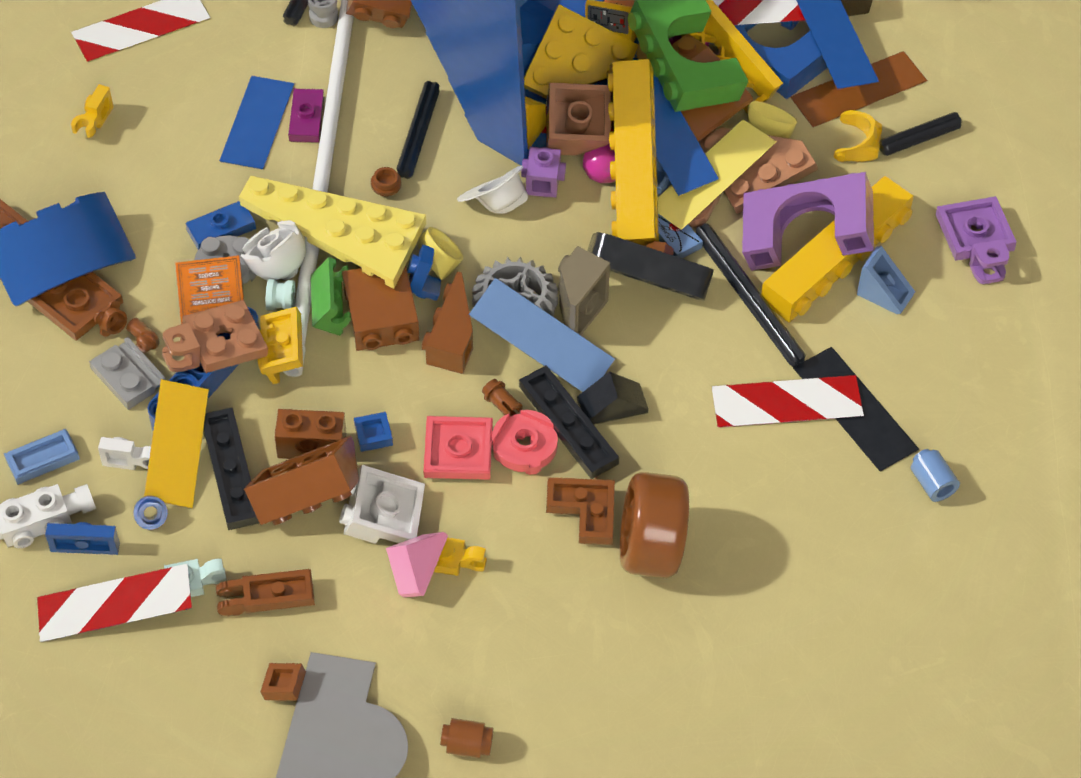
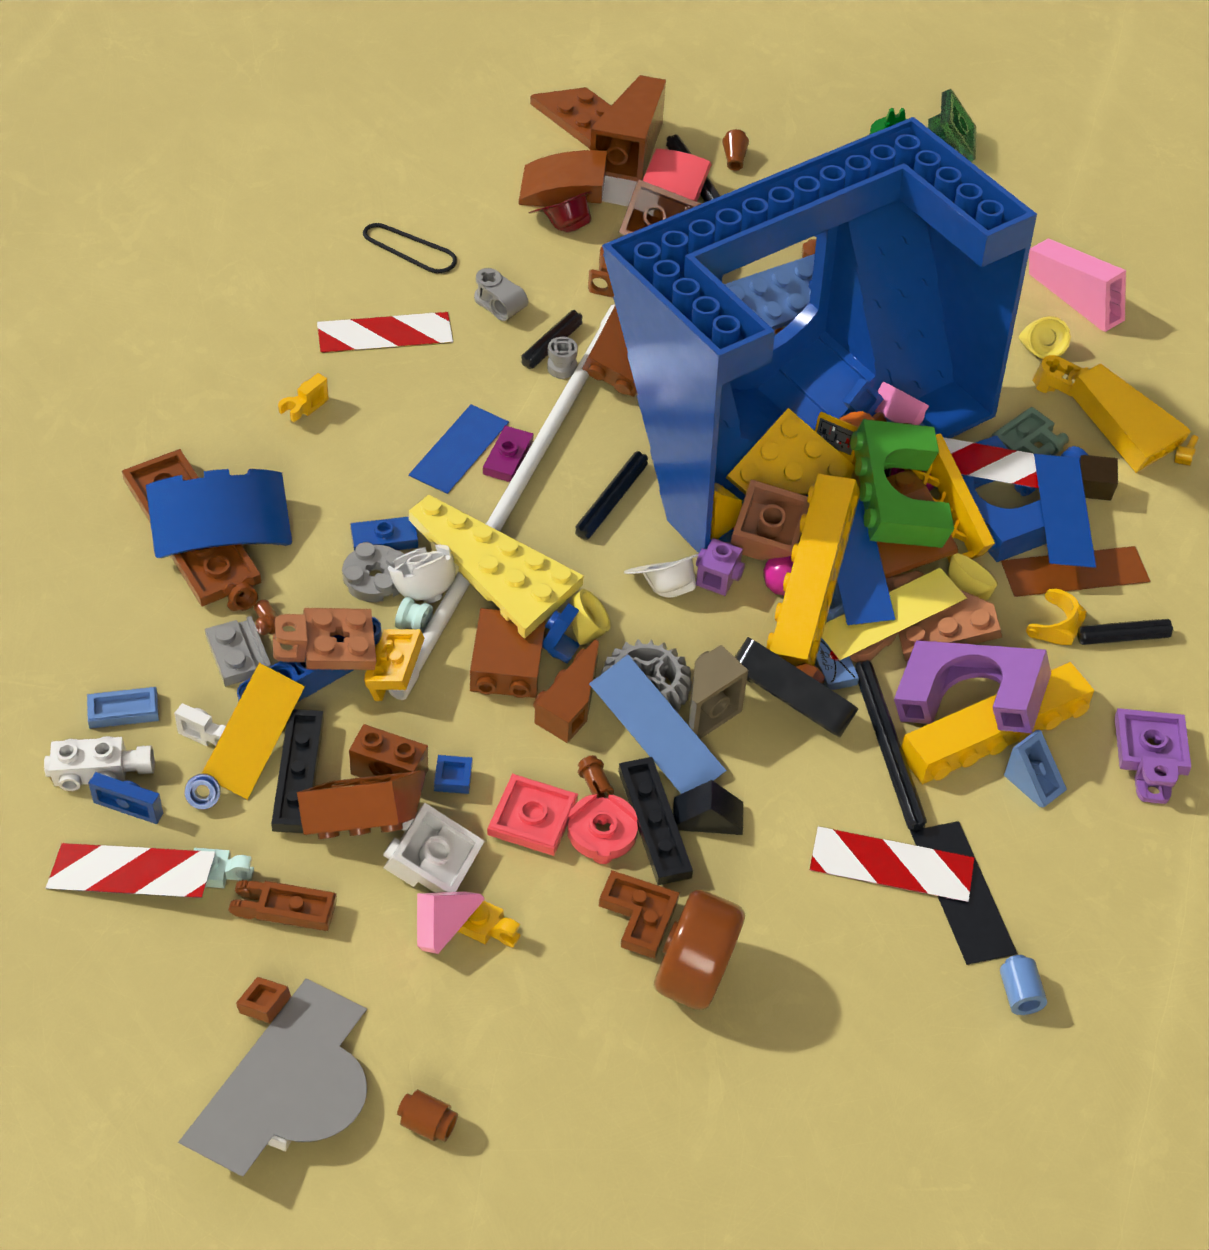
camera: 15 degrees right, 5 degrees down
(208, 283) = (348, 585): orange tile -> none
(327, 298) = (458, 632): bright green hinge -> none
(386, 181) = (560, 536): dark orange plate -> none

